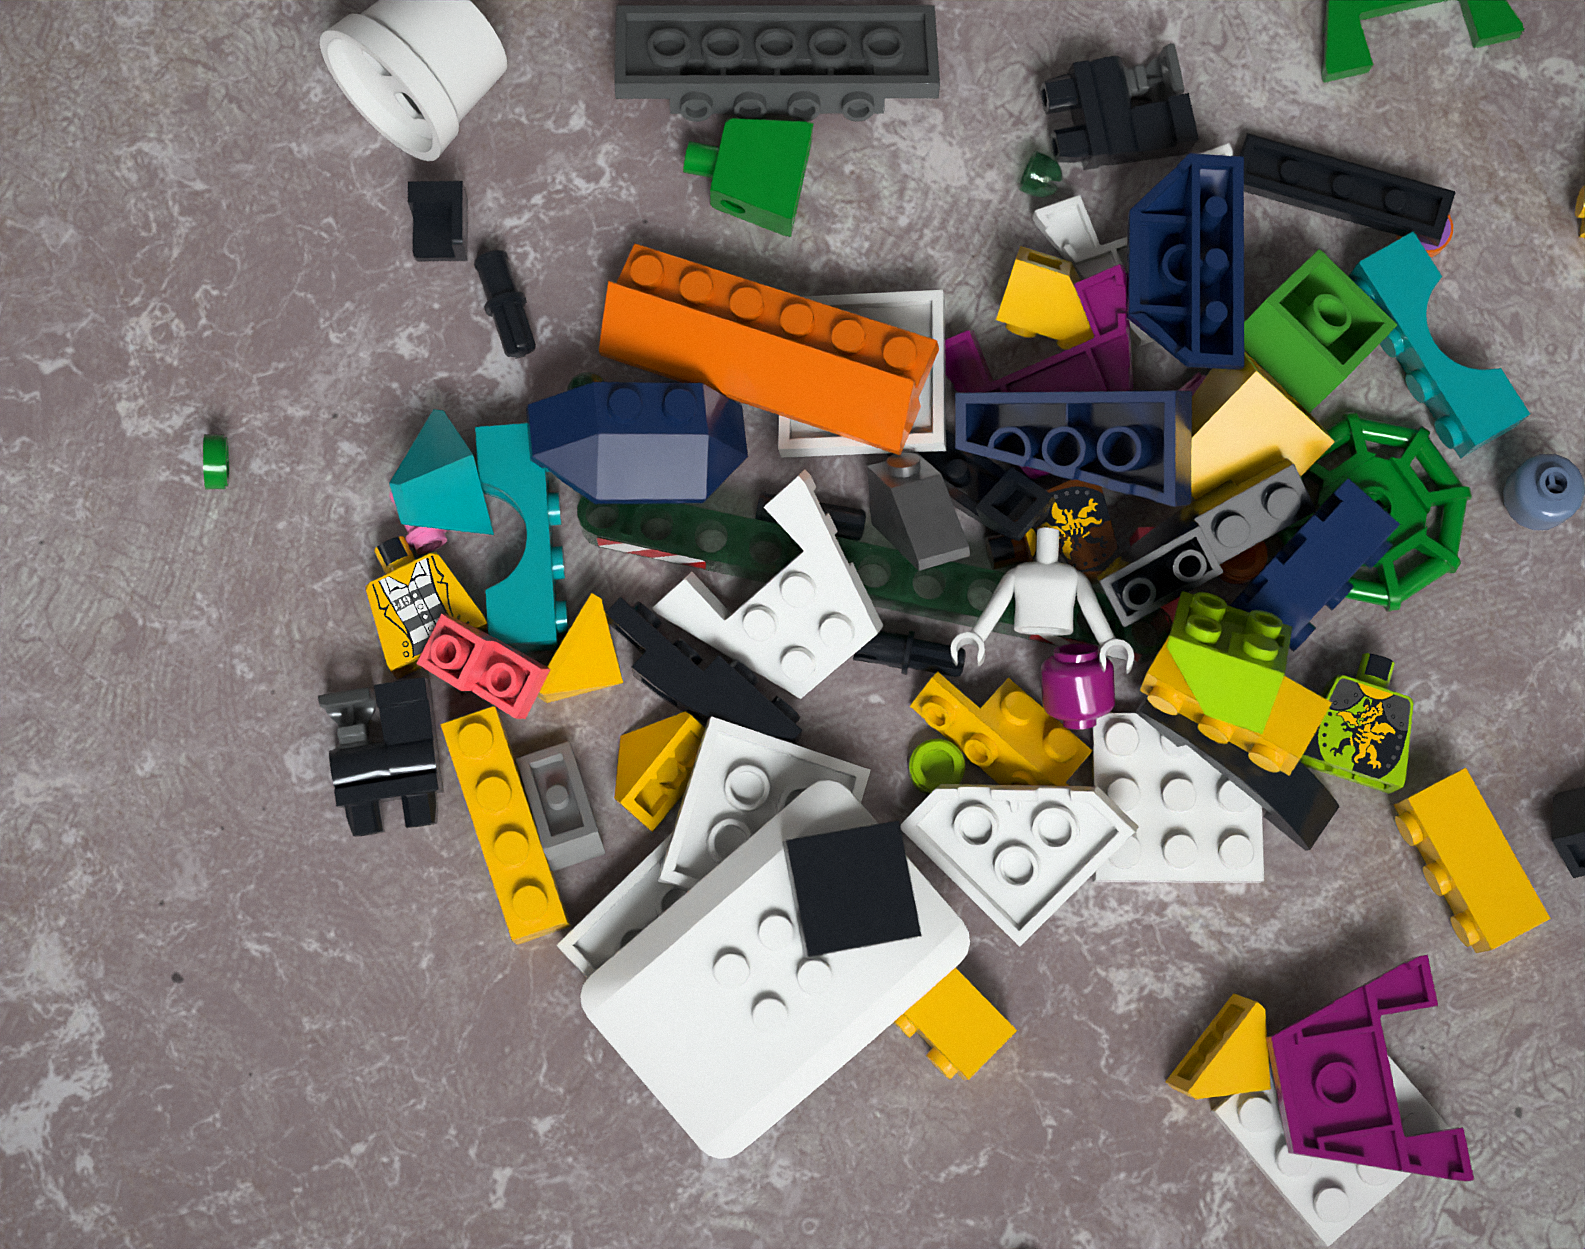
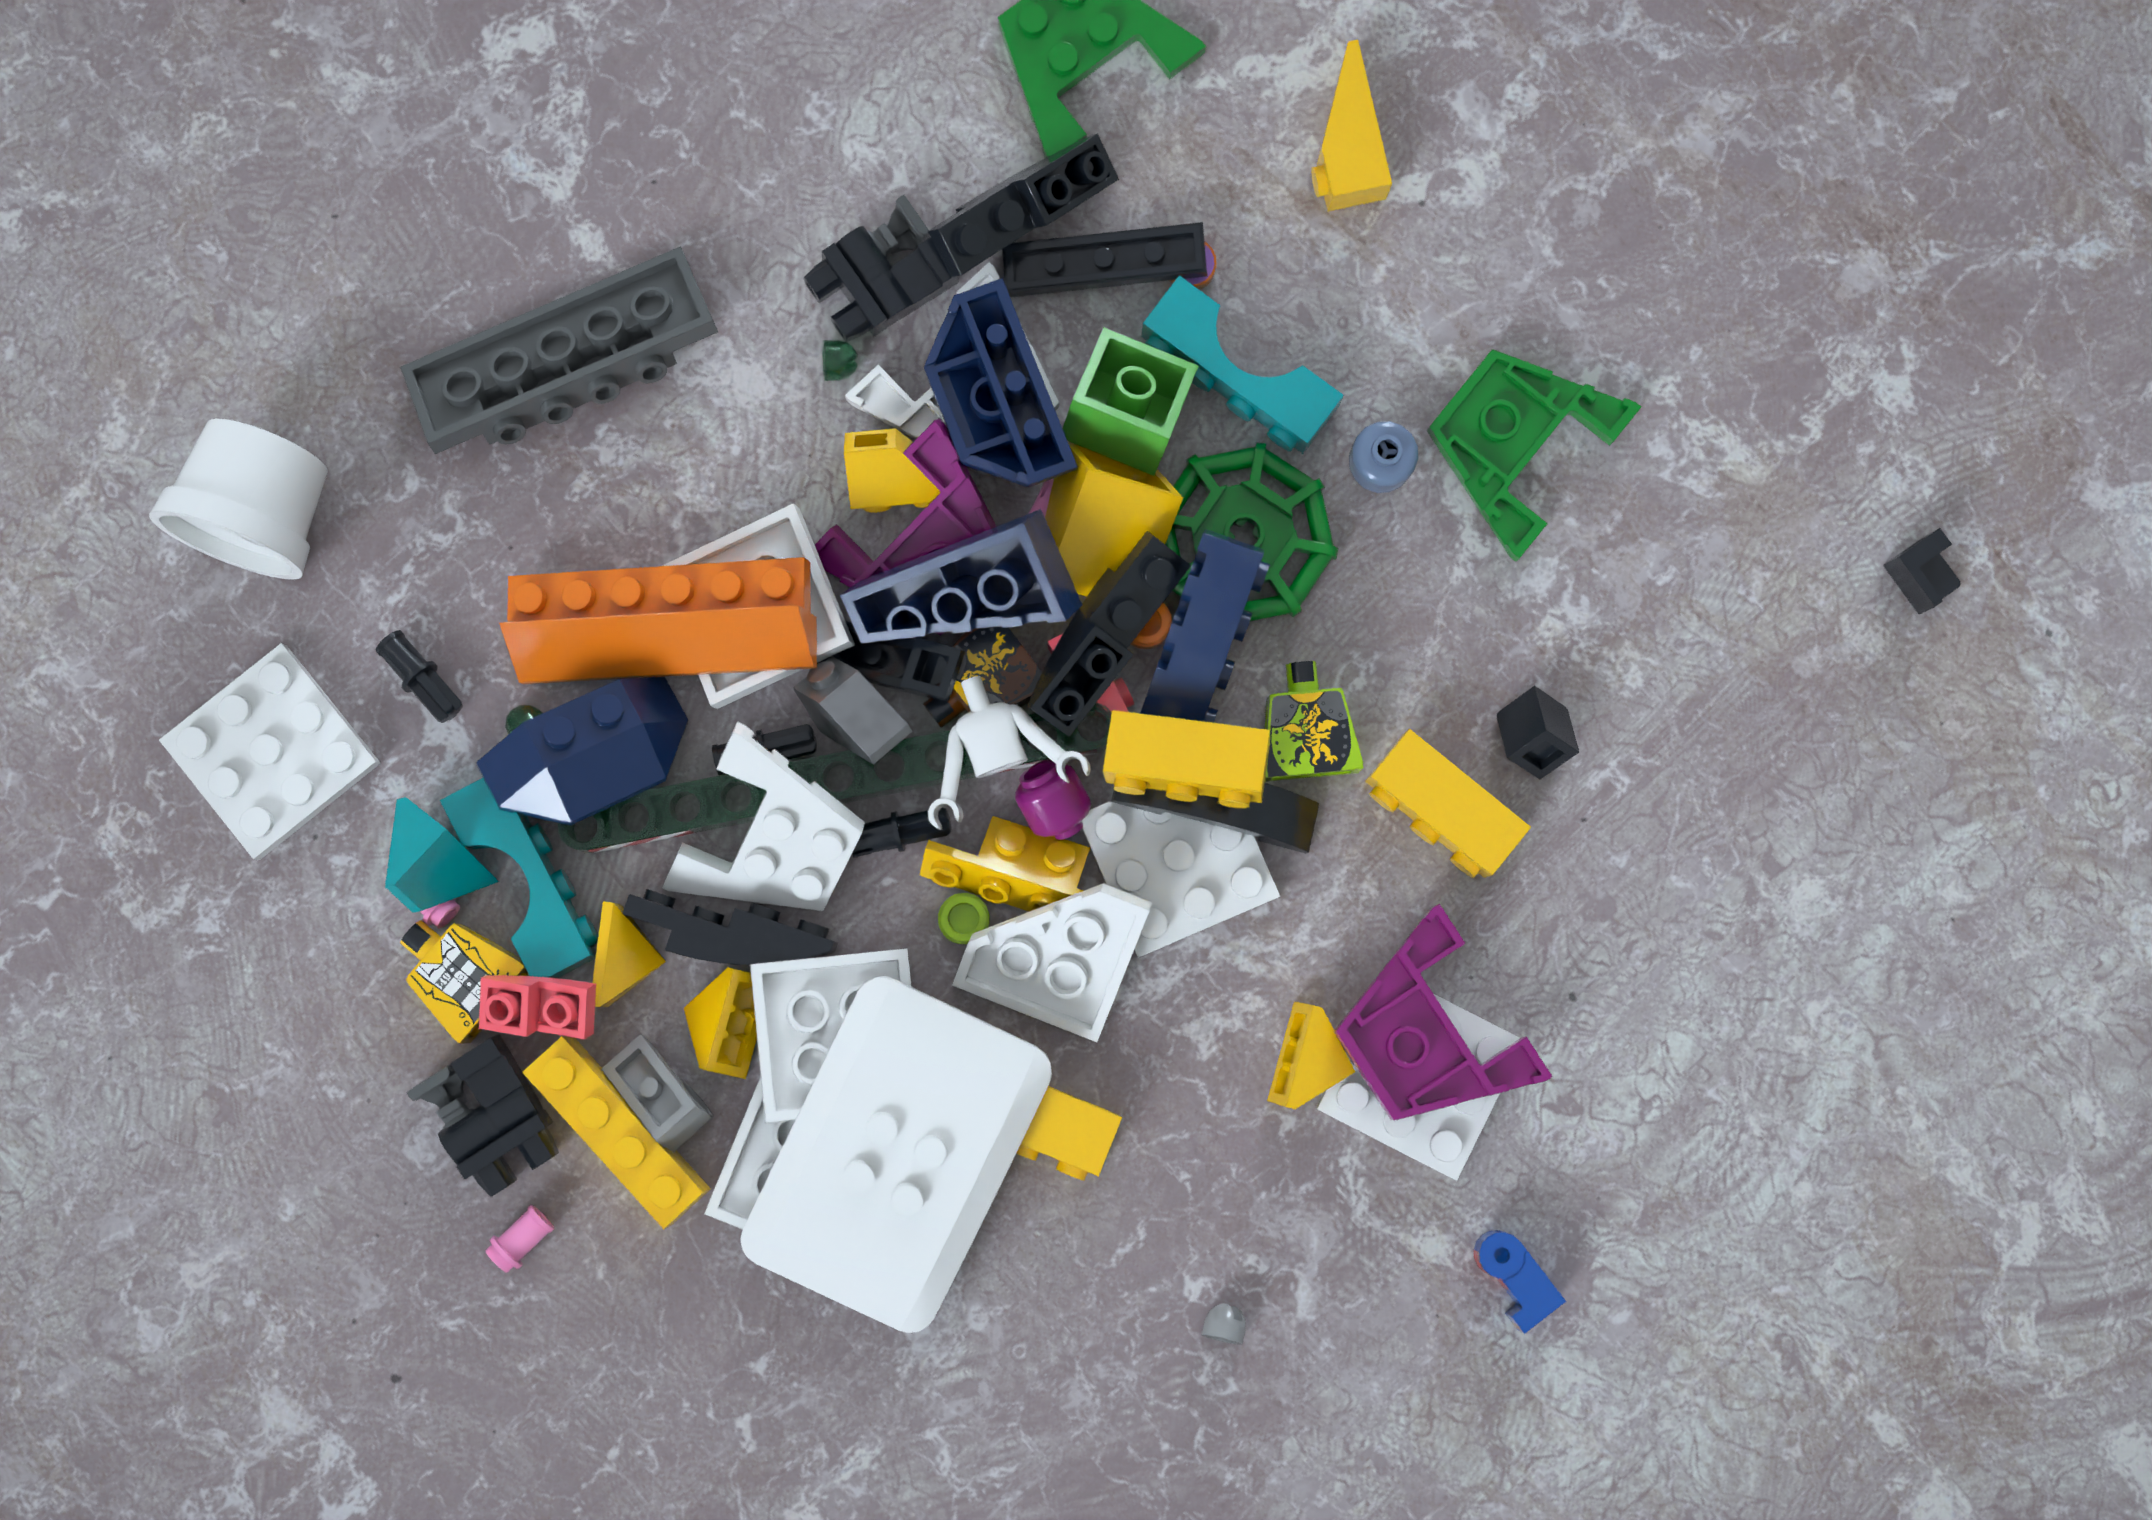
camera: 20 degrees left, 5 degrees up
(215, 461) = (228, 925): green tile -> none
(328, 315) = (269, 751): none -> white plate
(361, 891) = (519, 1239): none -> bright pink pin
(439, 220) = (329, 627): black panel -> none
(755, 170) = (587, 463): green torso -> none
(851, 889) = (929, 1066): black tile -> none
(1229, 658) = (1163, 732): lime slope -> none
(1286, 102) = (1022, 204): none -> black slope

